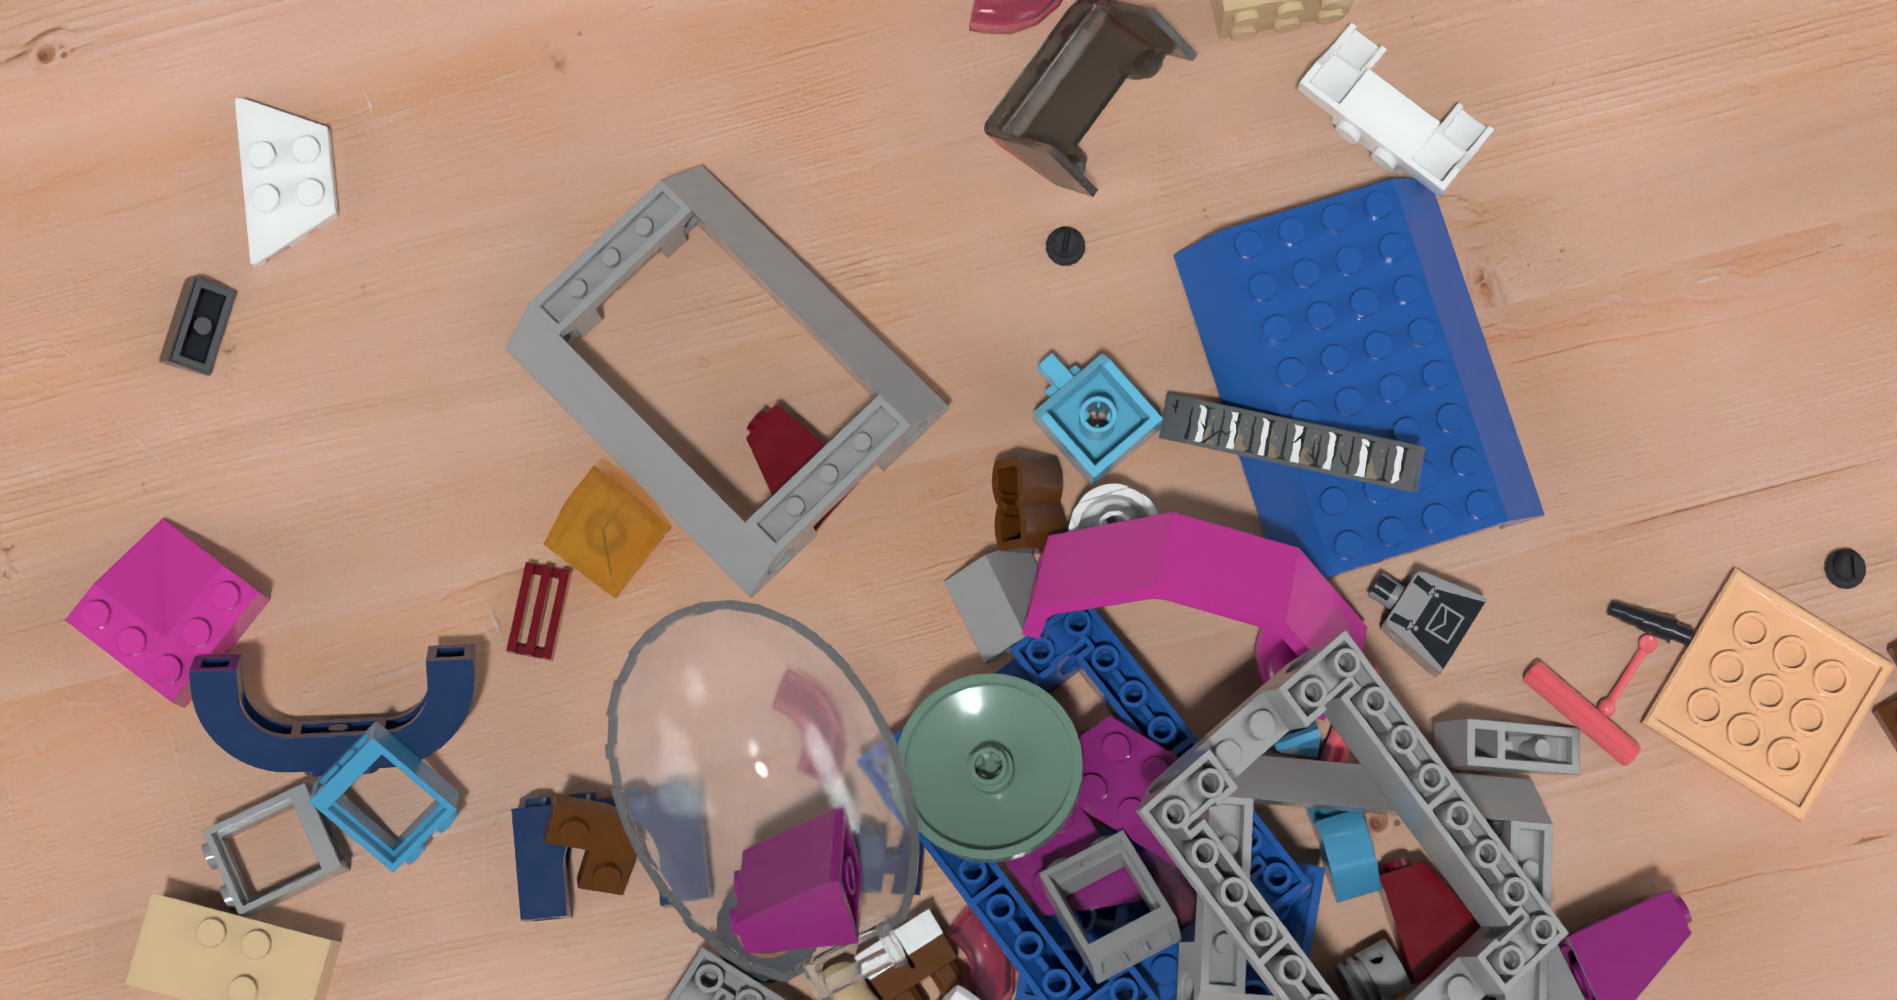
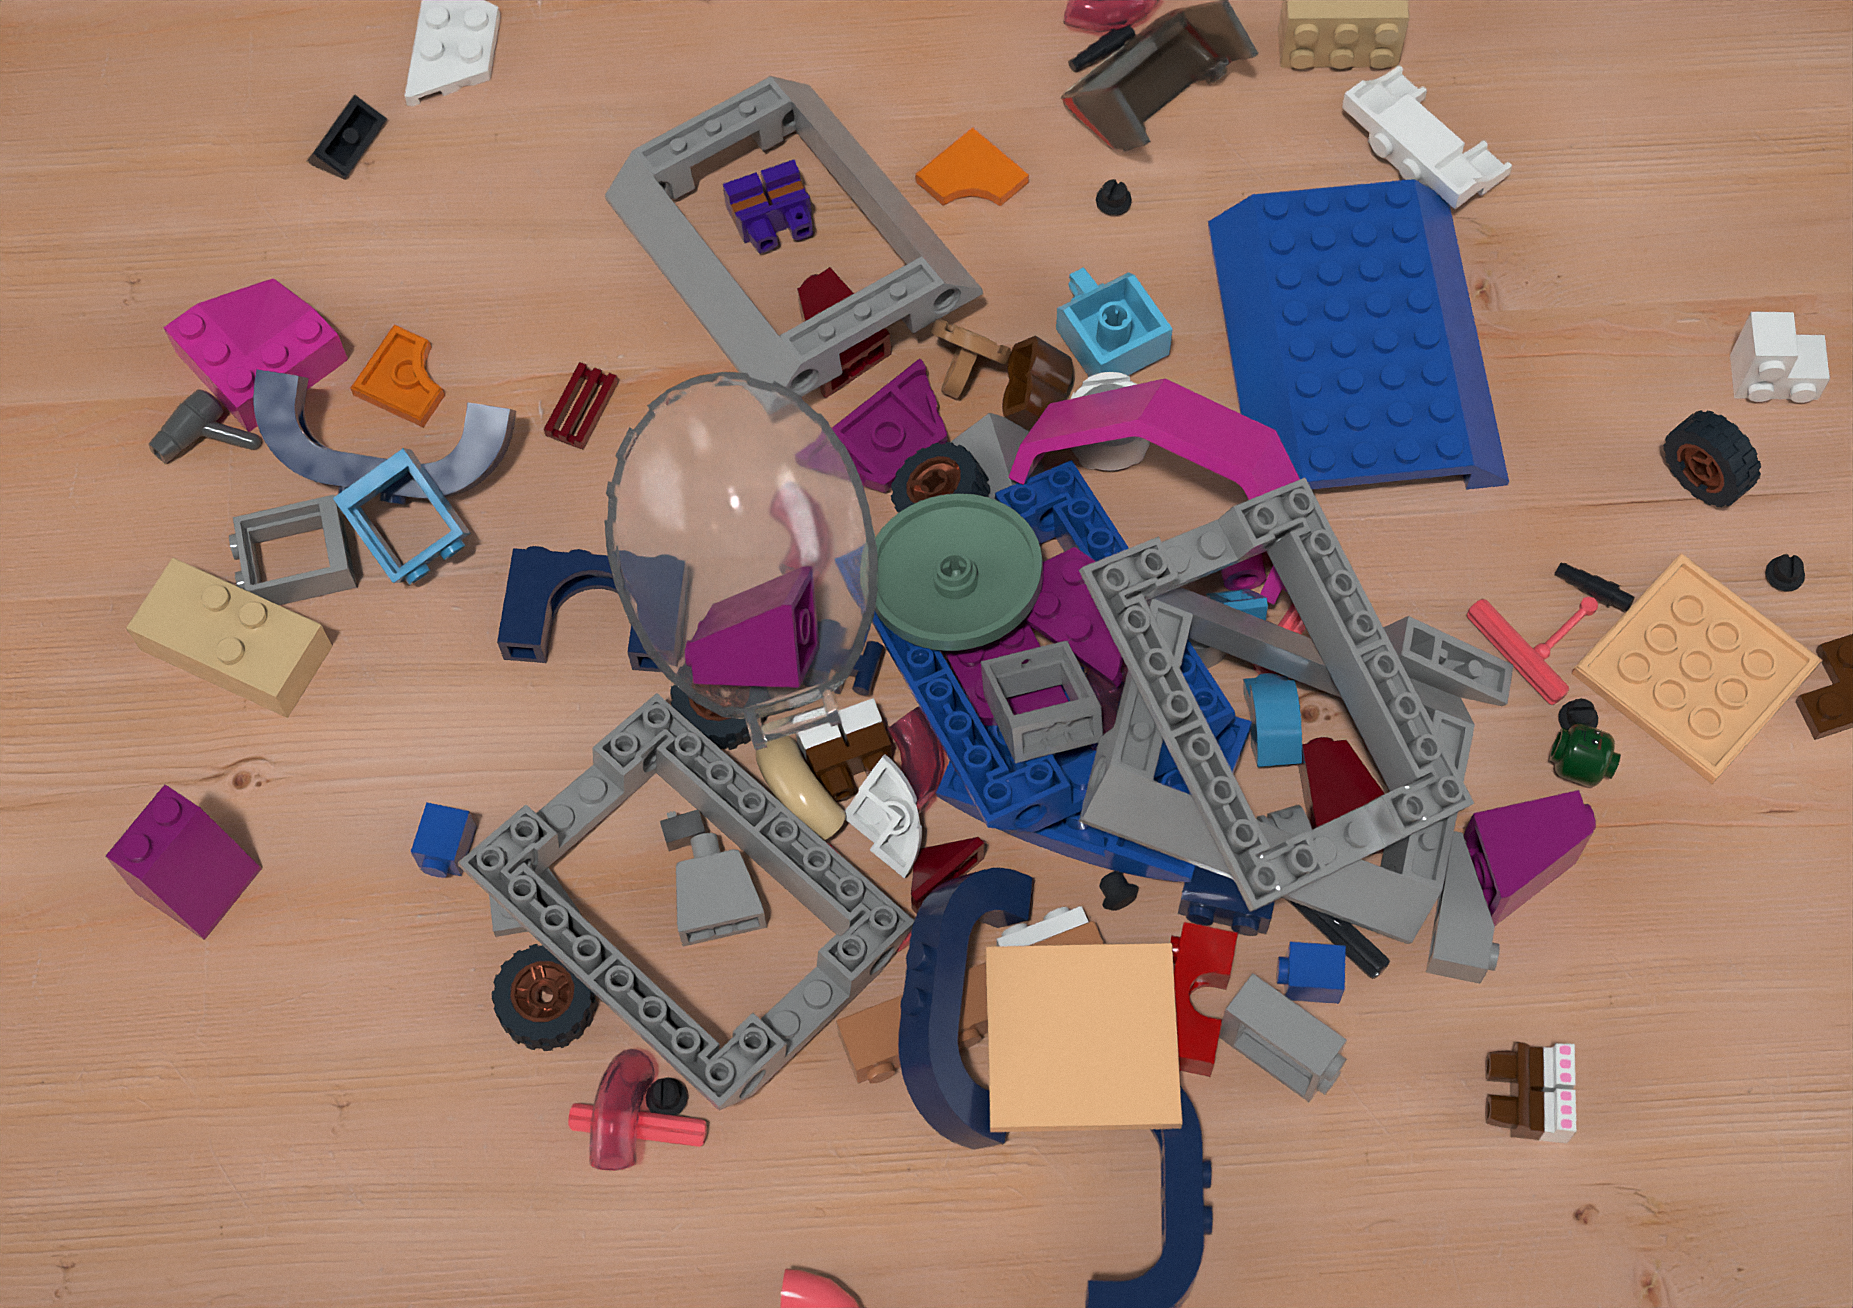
camera: 10 degrees right, 15 degrees down
(123, 712) = (194, 419): none -> dark grey piece
(331, 615) = (398, 378): none -> orange tile
(600, 833) = (593, 585): reddish brown plate -> none
(605, 532) = (655, 346): clear yellow slope -> none
(709, 320) = (769, 206): none -> dark purple hips
(876, 585) = (892, 427): none -> magenta wing
(903, 238) = (972, 169): none -> orange tile
(932, 629) = (937, 472): none -> wheel
(946, 473) = (969, 346): none -> medium nougat tile
(1021, 49) = (1102, 48): none -> black animal
(1293, 442) = (1288, 364): tile -> none
(1427, 617) = (1386, 542): torso -> none
(1654, 776) = (1578, 711): none -> black piece
(1667, 824) = (1584, 754): none -> dark green head
(1755, 463) = (1712, 458): none -> black wheel
(1811, 326) = (1776, 362): none -> white brick

